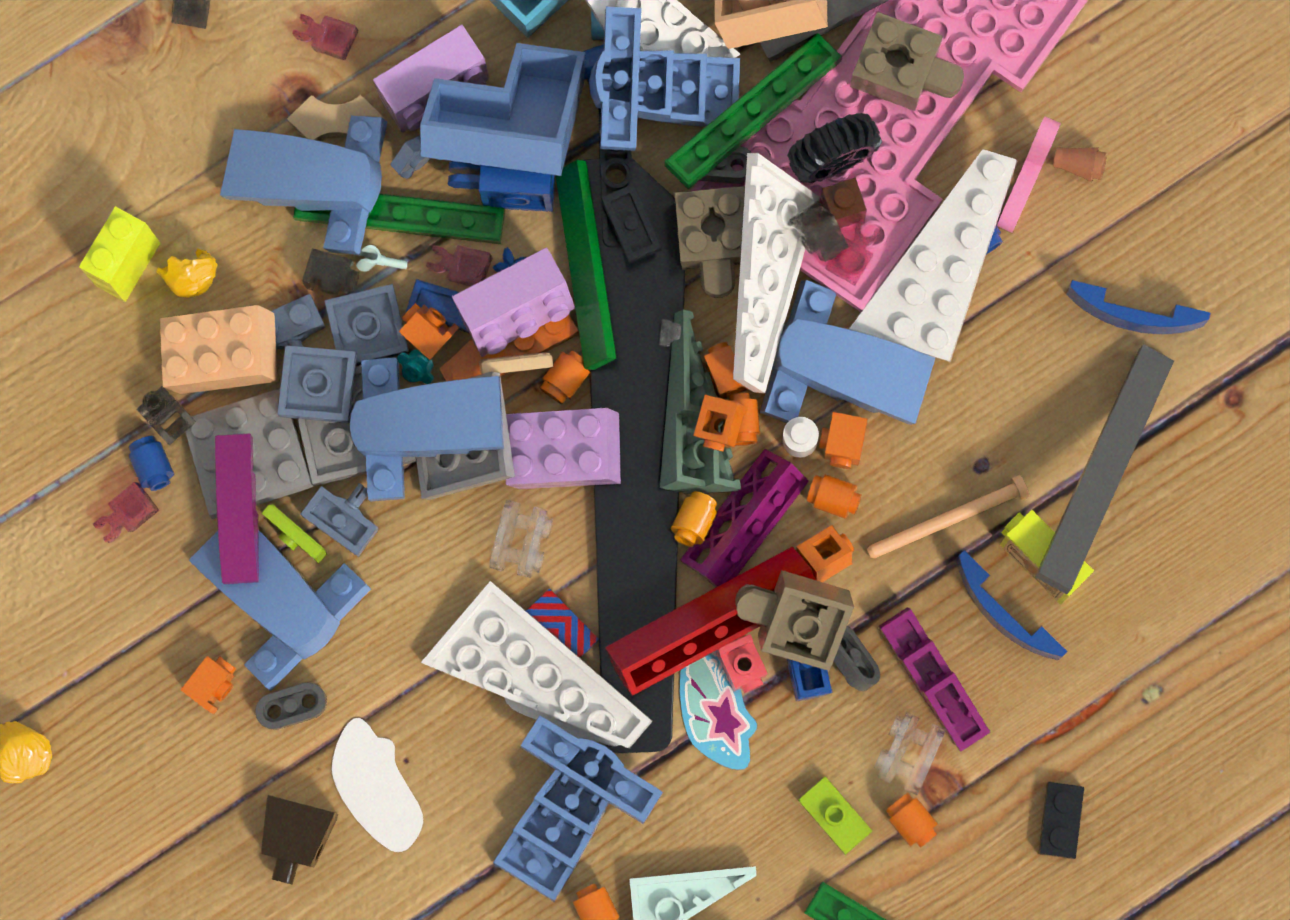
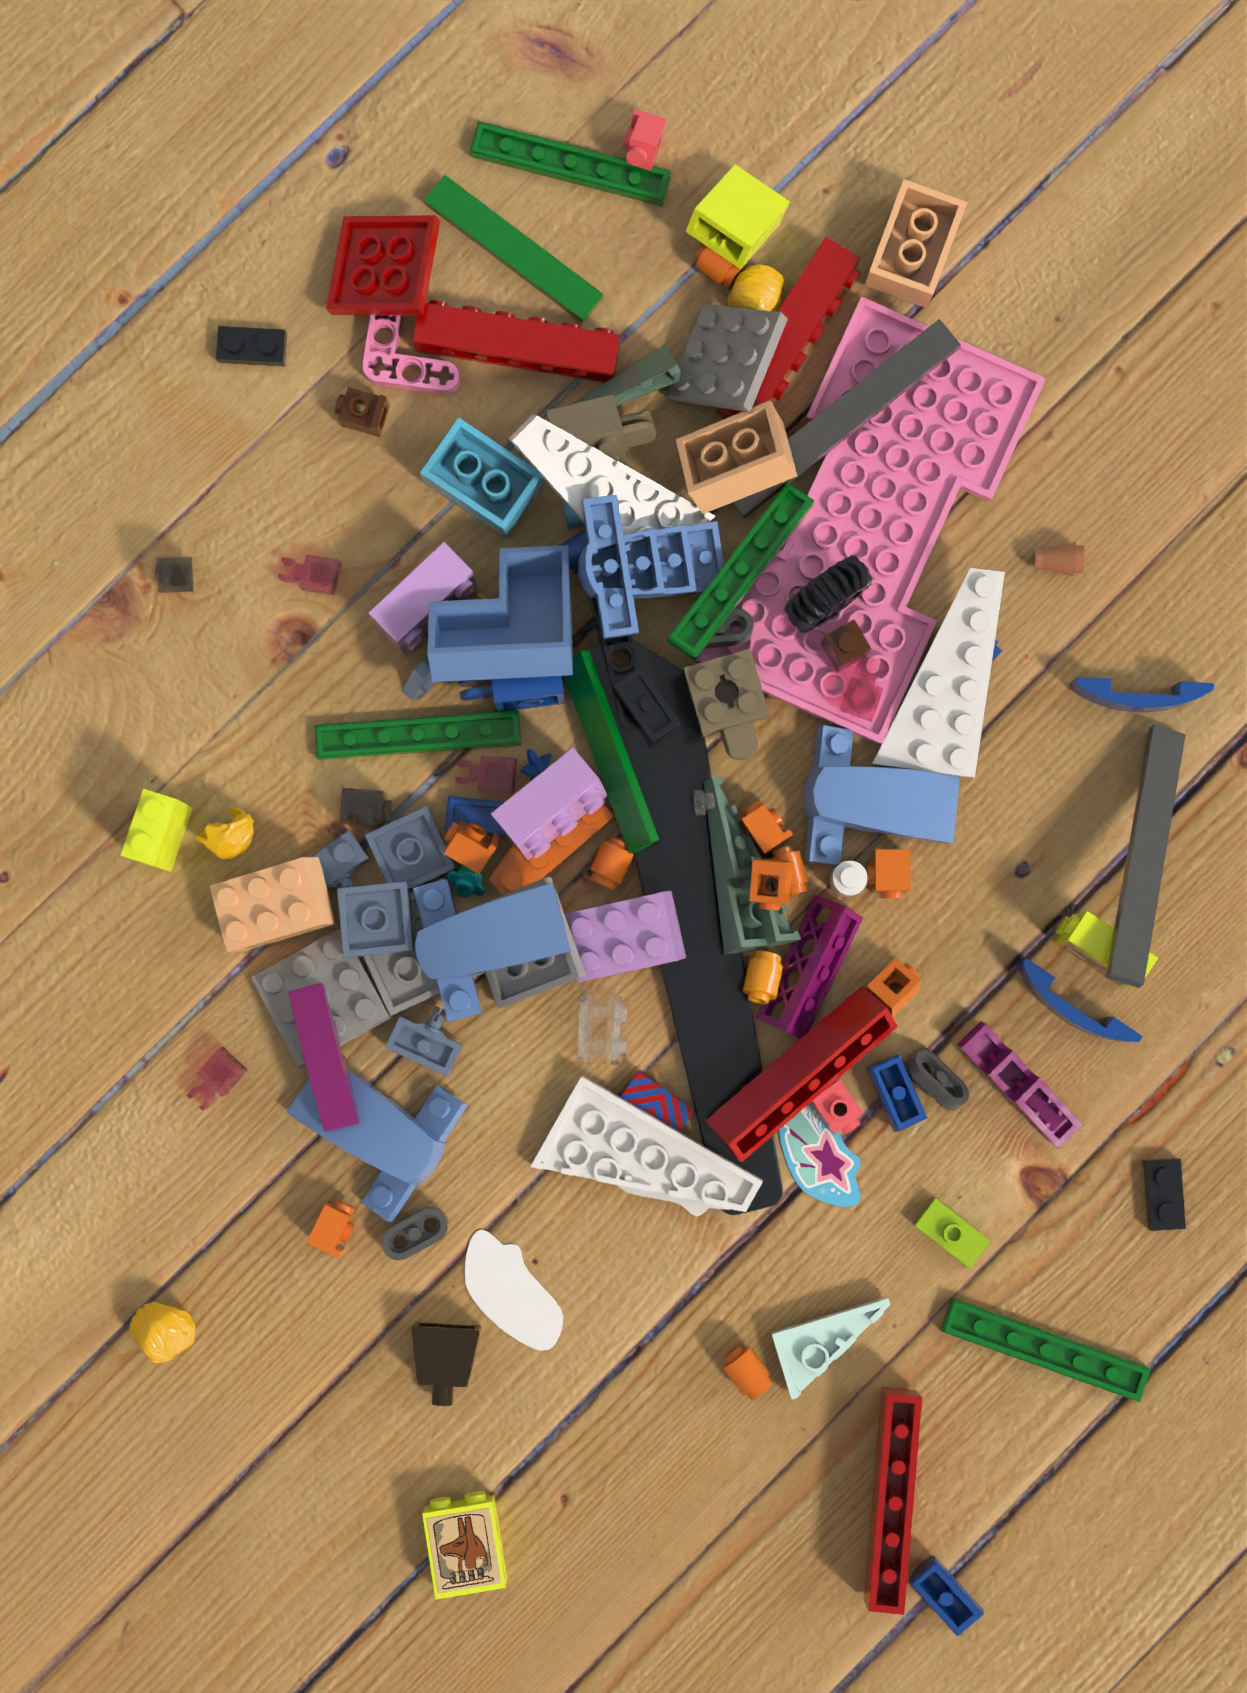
camera: 20 degrees left, 5 degrees up
(150, 463) = (229, 1026): blue brick -> none
(160, 406) = (227, 971): clear smoke brick -> none
(293, 535) = (381, 1068): lime plate -> none
(312, 176) = (327, 716): medium blue slope -> none
(322, 120) = (353, 651): tan tile -> none
(375, 258) = (404, 783): light aqua hand -> none
(516, 363) = (563, 862): tan tile -> none
(569, 807) = (701, 1278): medium blue slope -> none
(767, 267) = (788, 703): white wing -> none
(798, 618) = (877, 1070): dark tan brick -> none
(819, 232) = (830, 678): clear smoke brick -> none
(834, 496) = (890, 928): orange brick -> none
(891, 761) = (995, 1171): clear brick -> none
(902, 63) = (875, 496): dark tan brick -> none
(912, 820) = (1026, 1224): orange brick -> none
(1016, 489) = (1060, 887): light nougat bar -> none
(1028, 174) = (1022, 556): bright pink beam -> none

